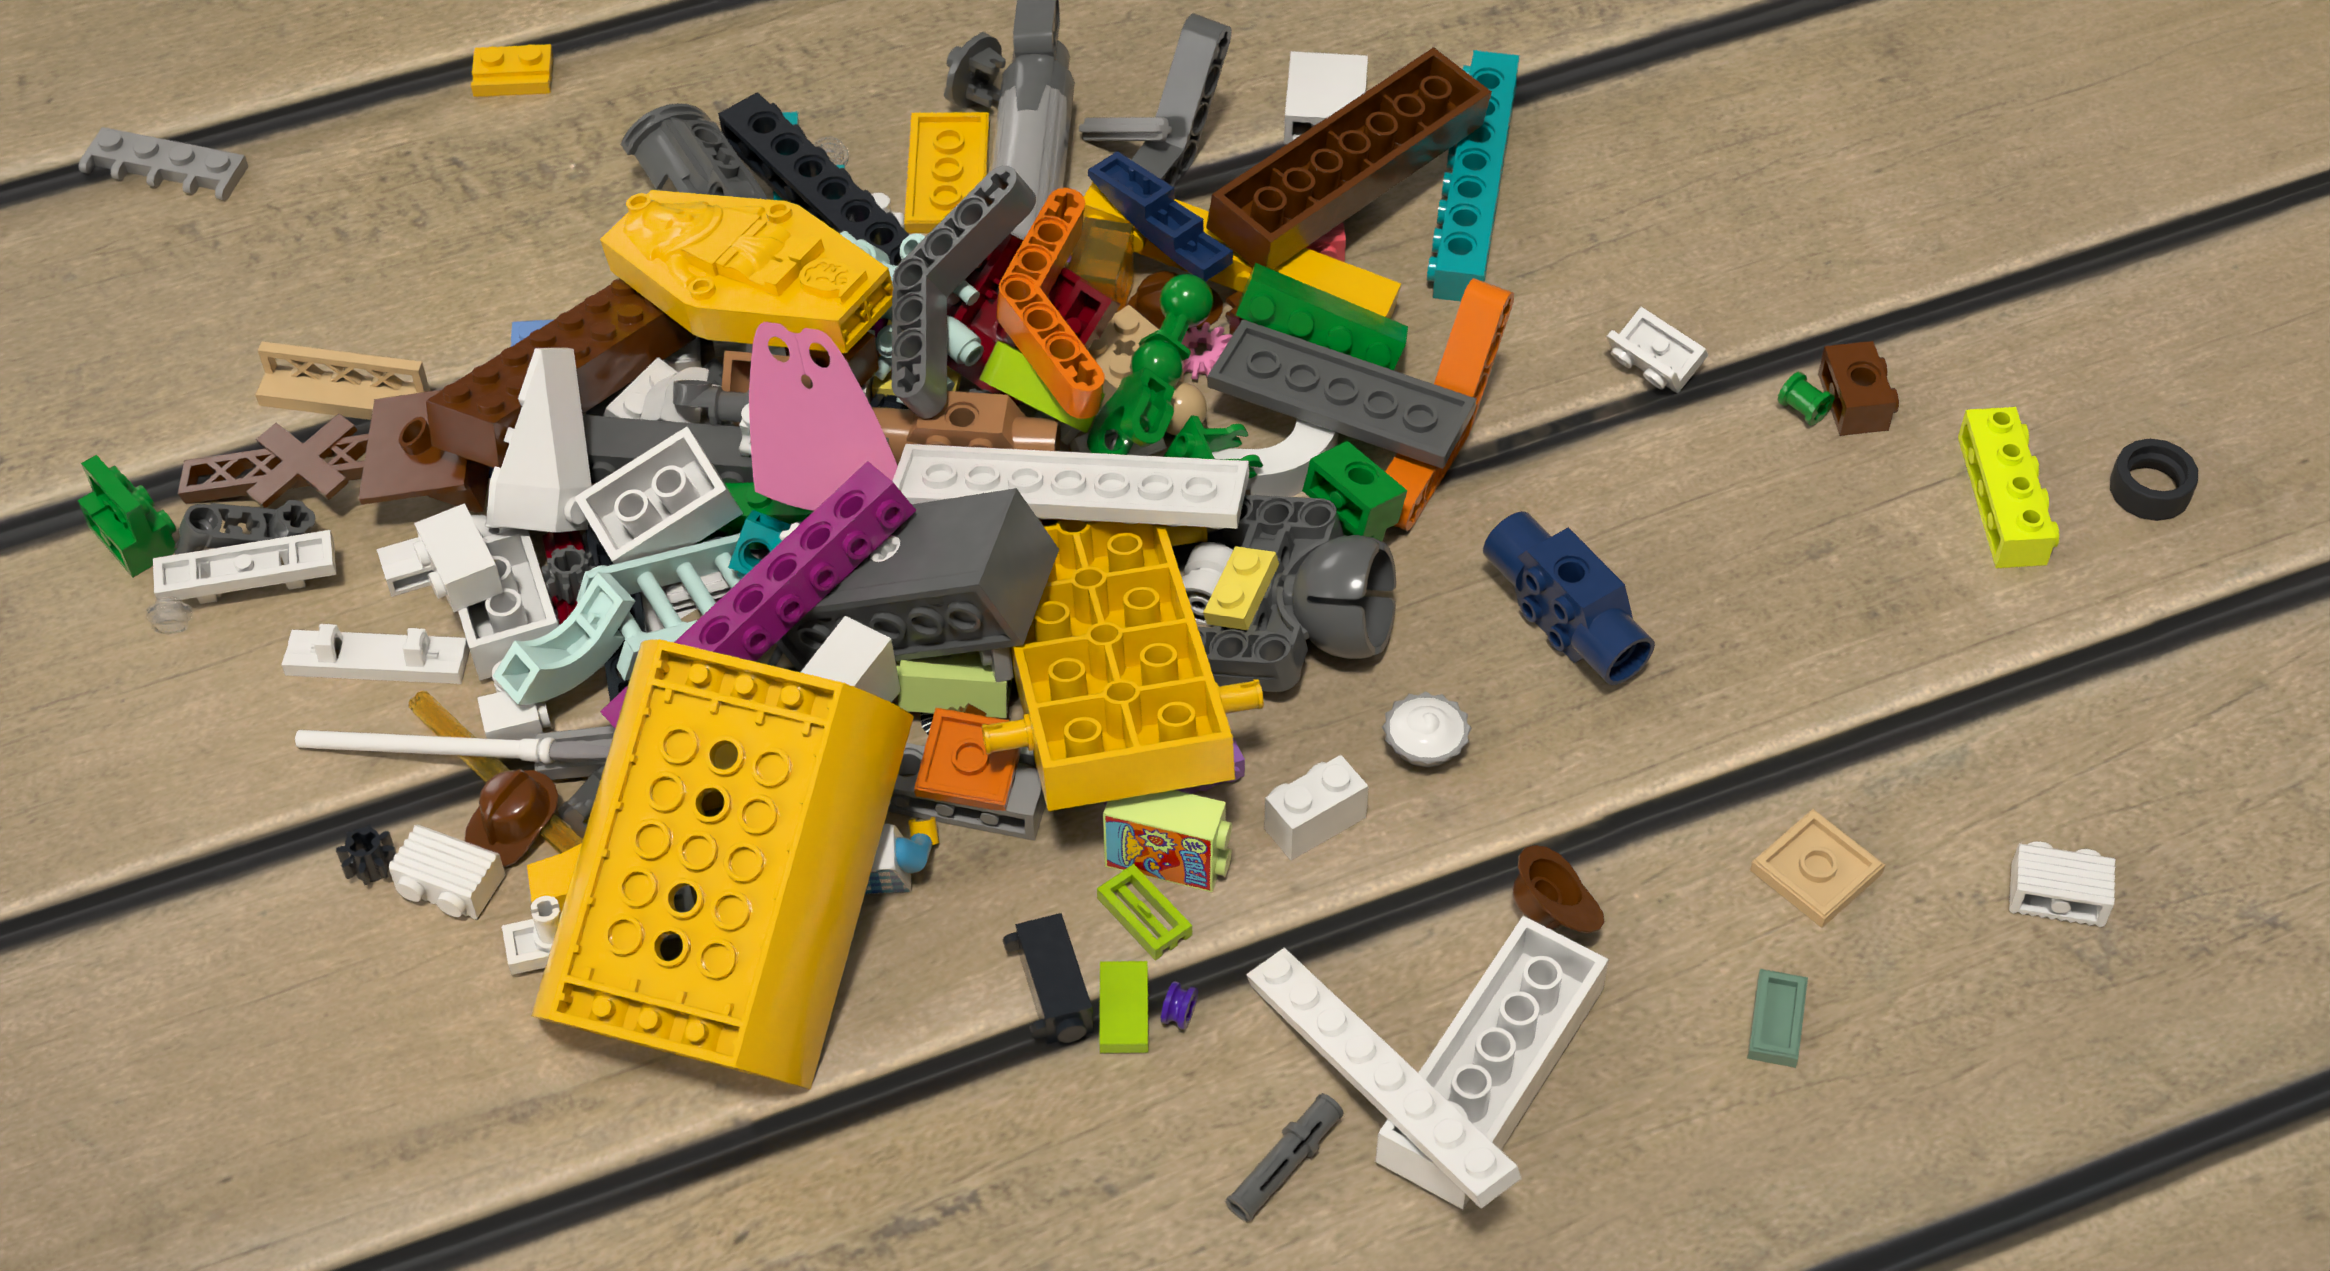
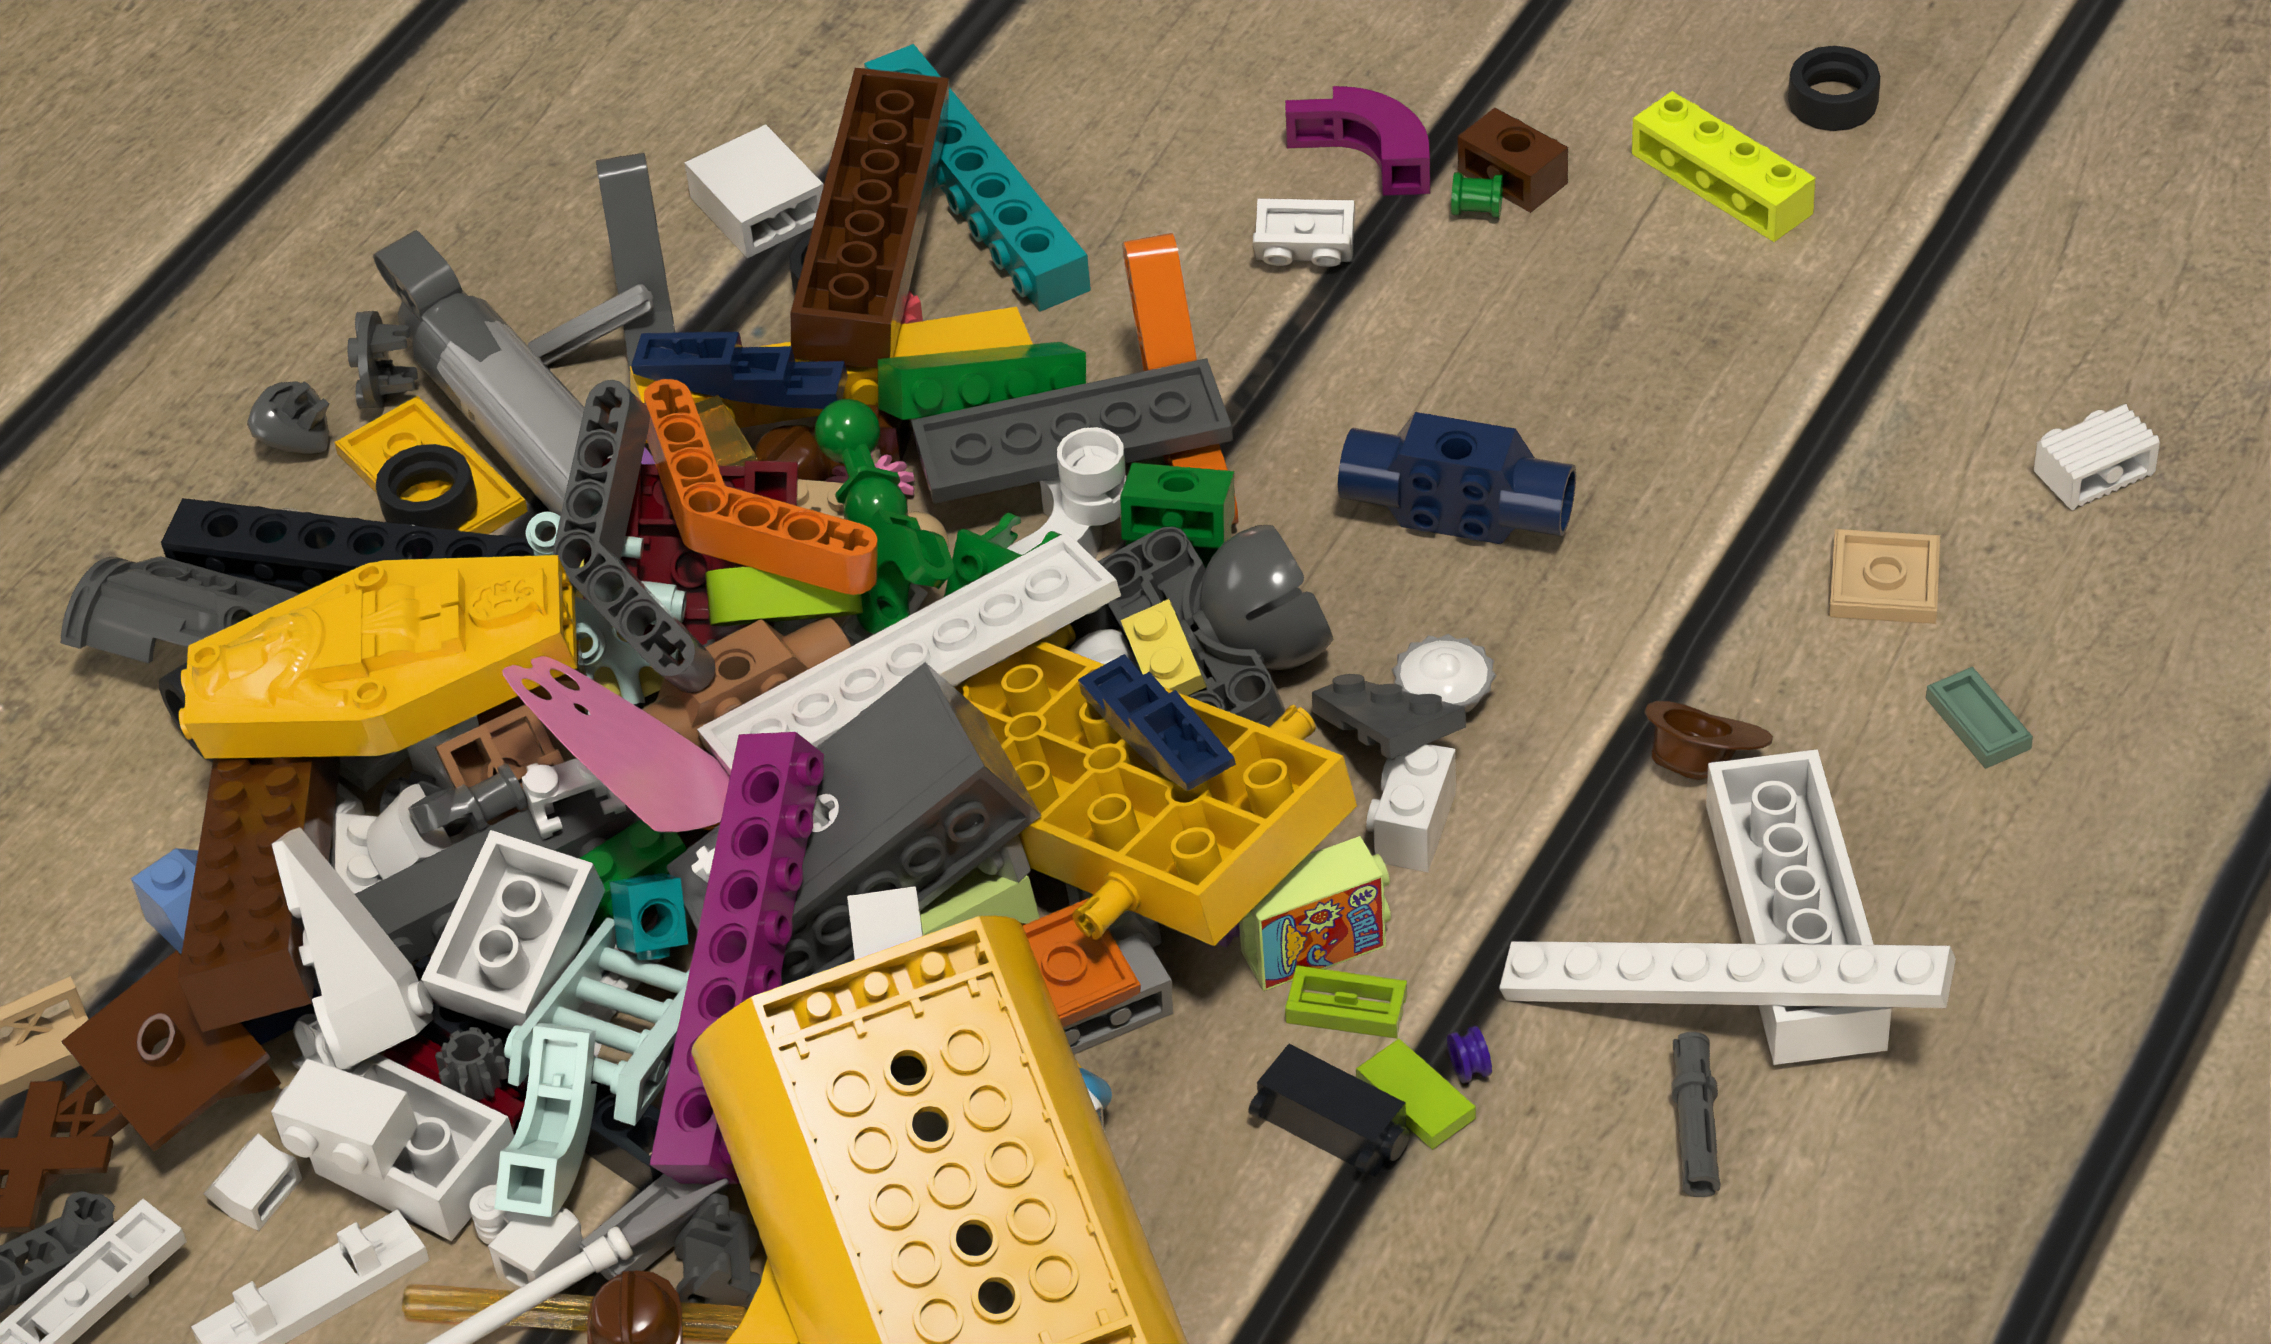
camera: 35 degrees left, 5 degrees down
(895, 80) = (290, 418): none -> dark grey piece
(919, 158) = (420, 465): none -> black tyre
(1147, 631) = (1156, 723): none -> dark blue slope
(1313, 427) = (1091, 475): none -> white wheel
(1352, 731) = (1387, 713): none -> dark grey wing
(1781, 299) = (1368, 124): none -> magenta arch

